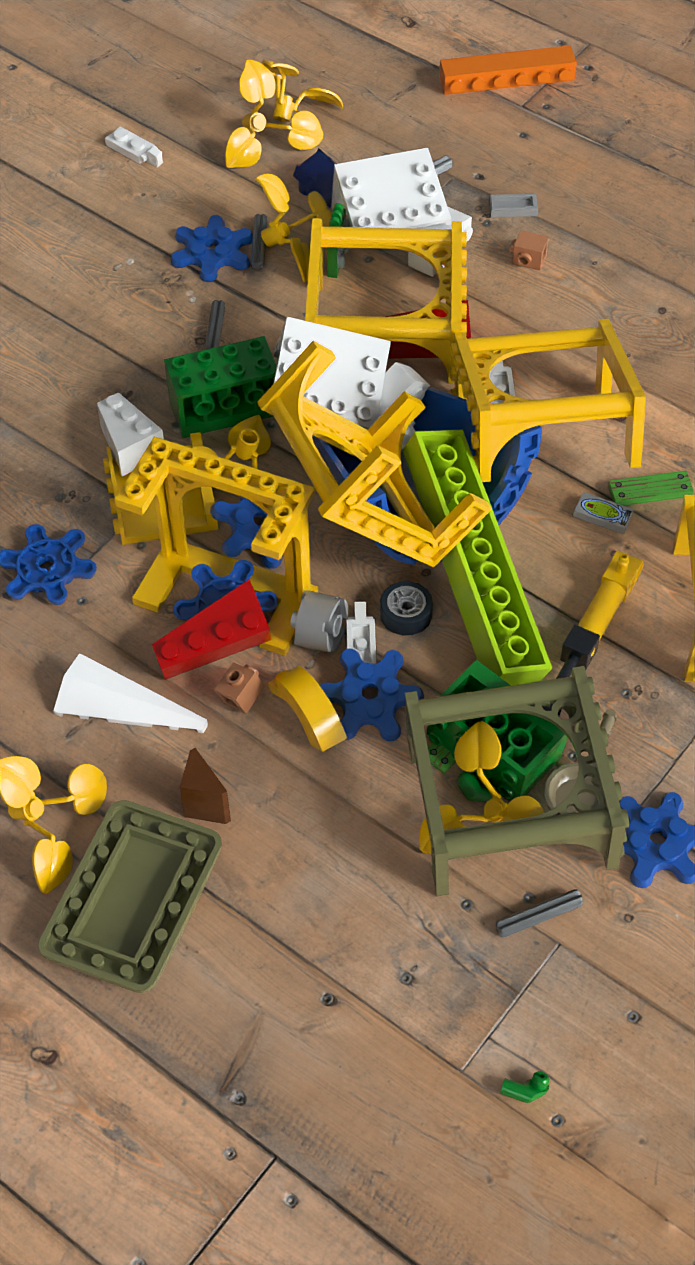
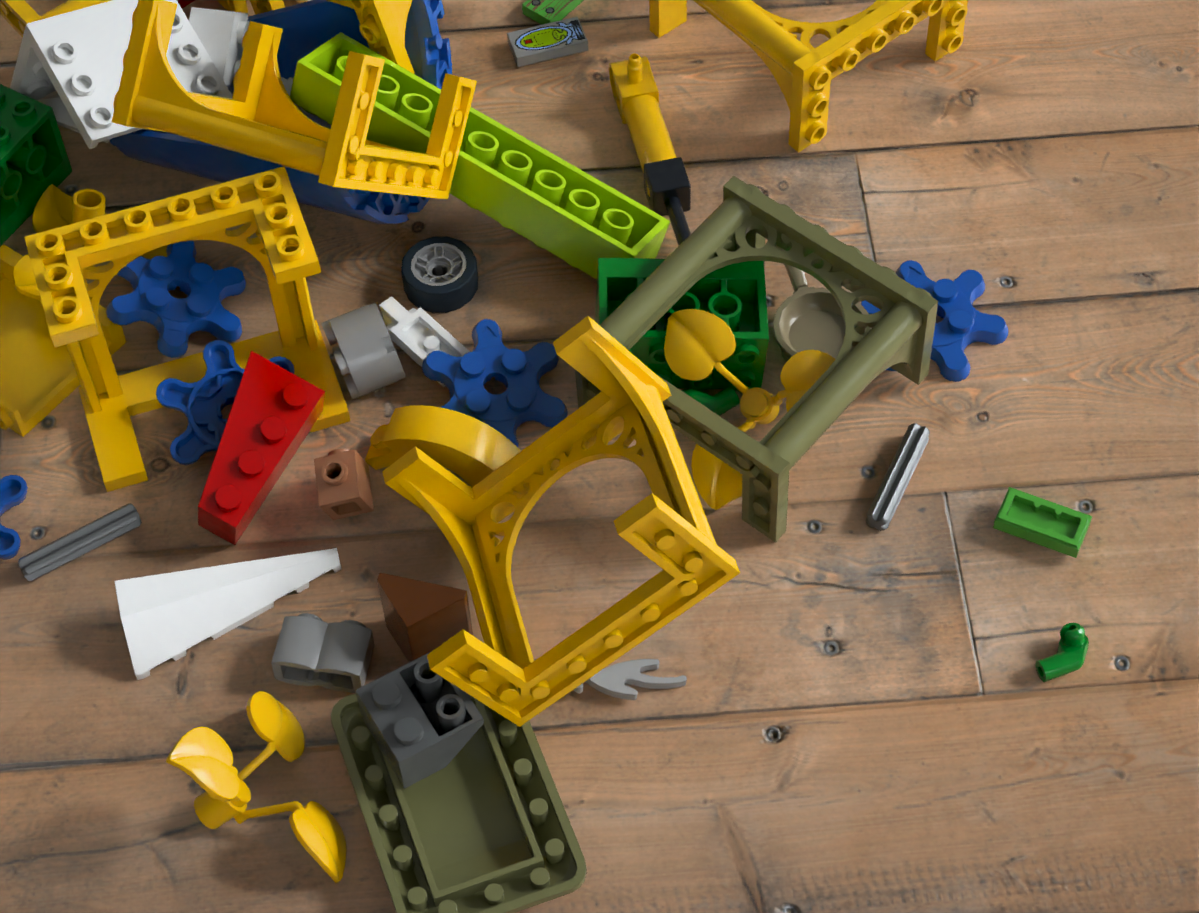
camera: 40 degrees left, 0 degrees up
(93, 621) = (79, 542): none -> dark grey axle
(141, 838) = (417, 719): none -> dark grey slope
(146, 770) = (323, 653): none -> light grey brick
(269, 898) = (614, 679): none -> light grey piece
(273, 756) = (663, 526): none -> yellow arch
(592, 1004) = (1042, 522): none -> bright green plate

